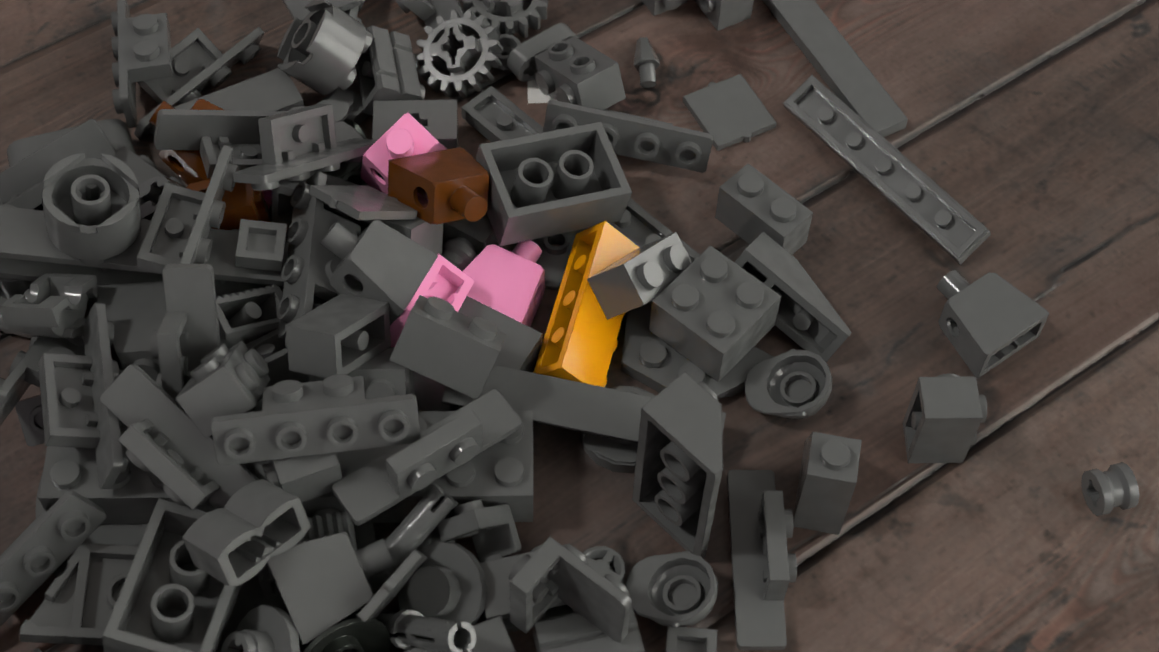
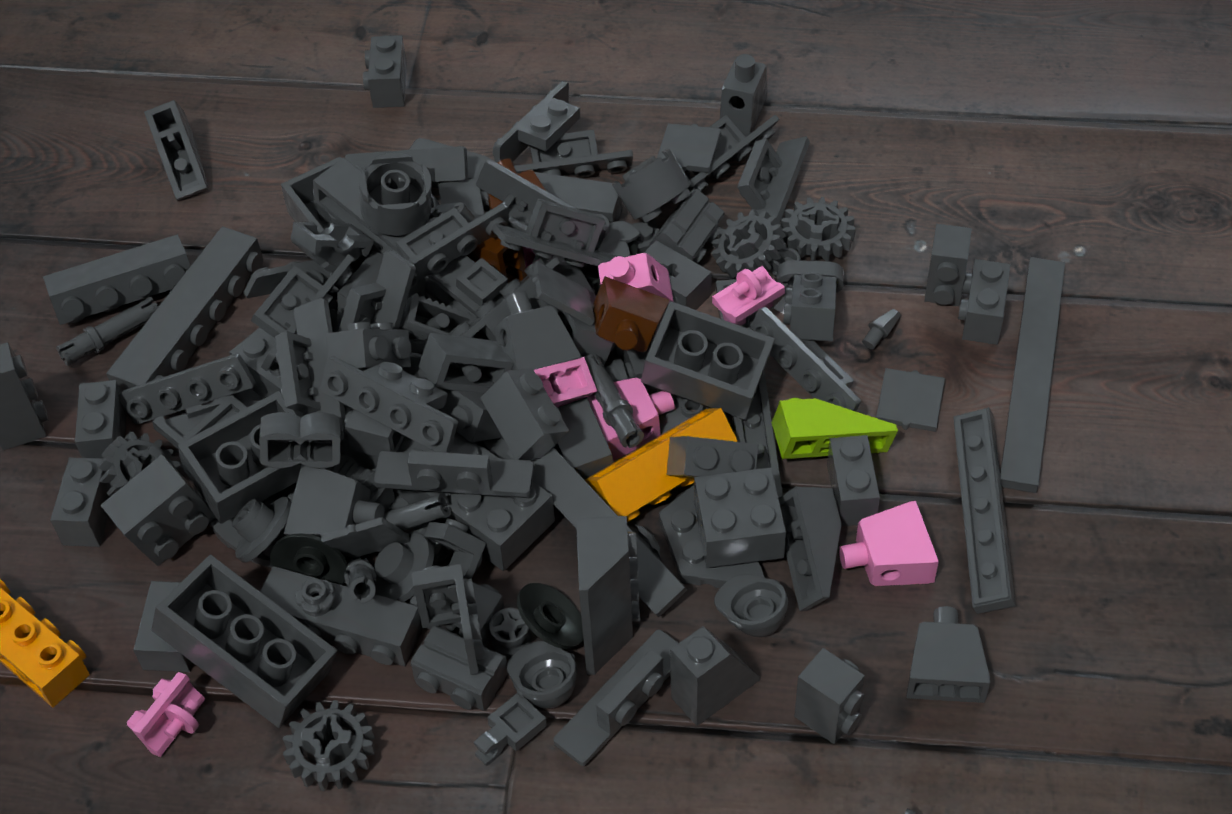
camera: 45 degrees right, 5 degrees down
(508, 288) = (615, 409): none -> dark grey pin
(518, 101) = (747, 295): none -> bright pink hips
(627, 530) = (550, 615): none -> pearl dark grey dish
(690, 184) = (808, 424): none -> lime slope
(854, 251) = (893, 548): none -> bright pink torso

